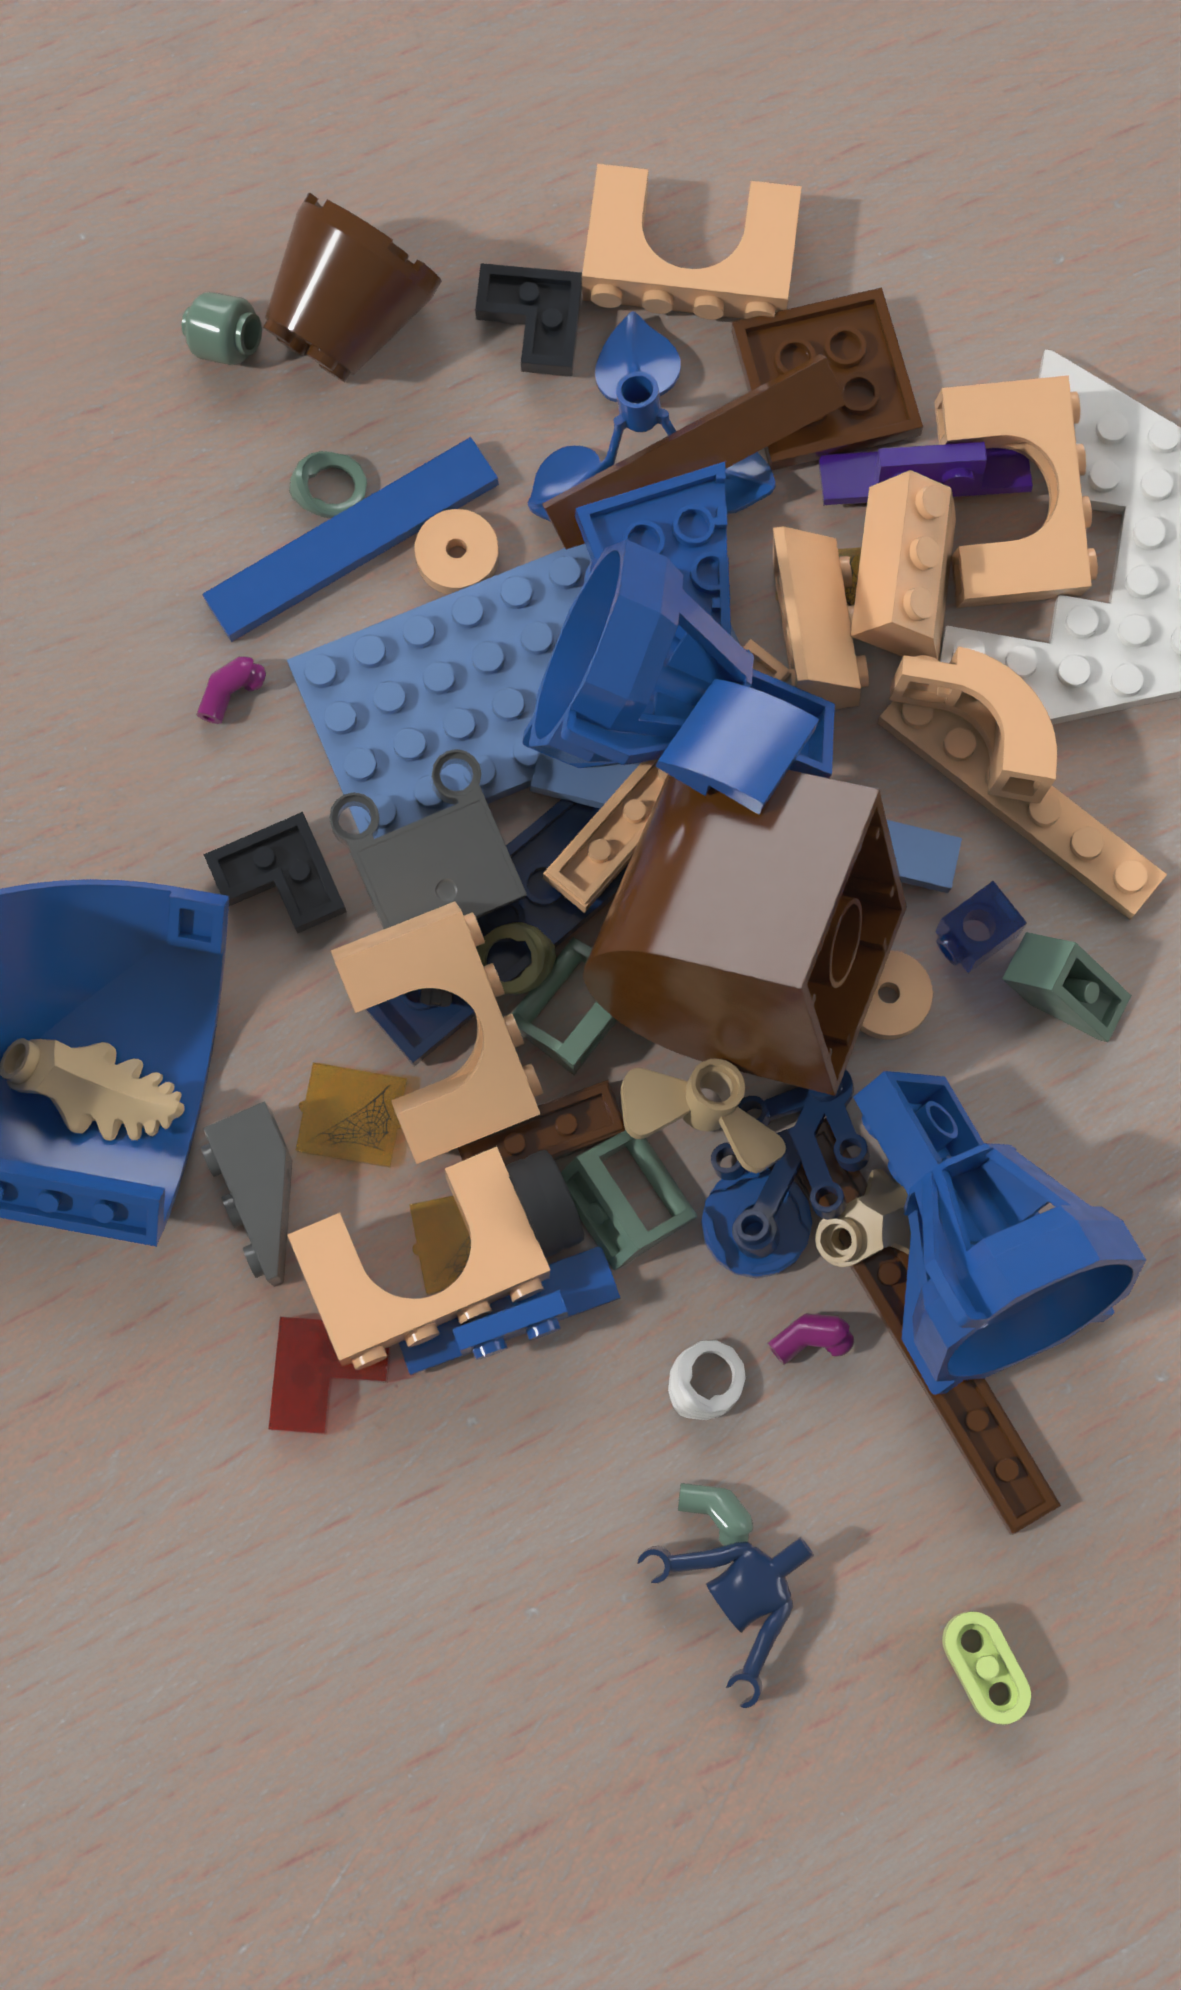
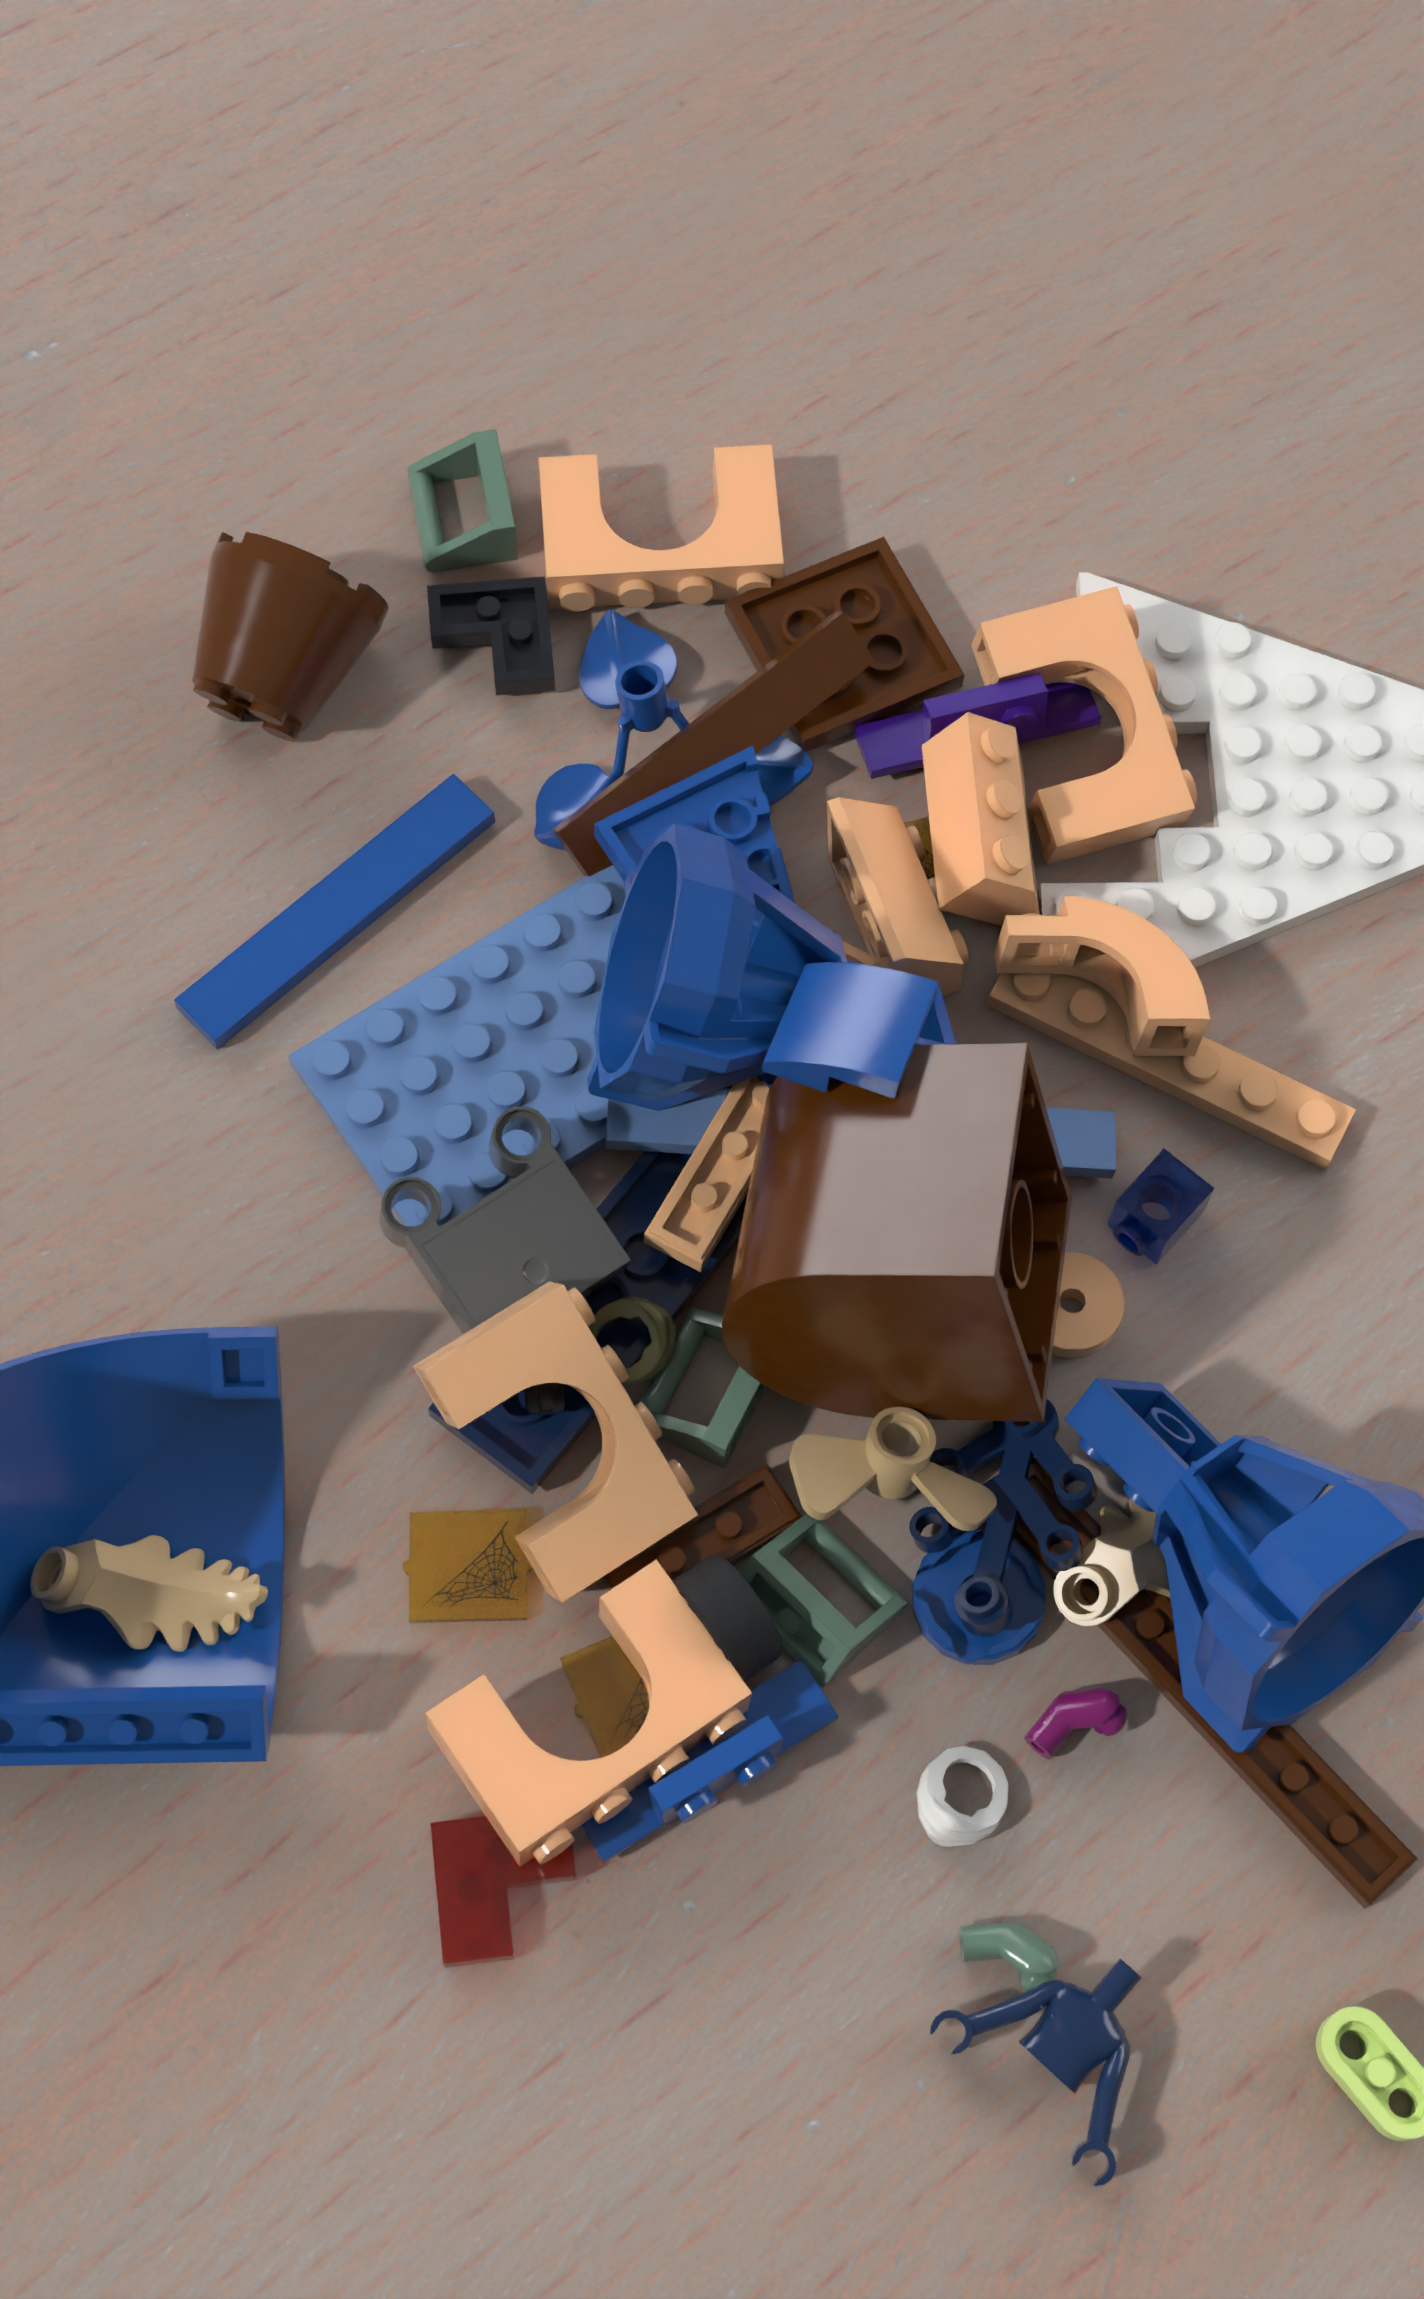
camera: 15 degrees left, 10 degrees down
(221, 328) = (142, 704): sand green head -> none
(224, 682) = (217, 1096): magenta arm -> none
(258, 1175) = (368, 1651): dark grey slope -> none
(284, 858) = (332, 1281): black plate -> none
(310, 467) = (274, 838): sand green piece -> none
(451, 530) = (457, 878): light nougat piece -> none
(539, 233) = (486, 544): none -> sand green tile
(1067, 985) = (1274, 1252): sand green slope -> none

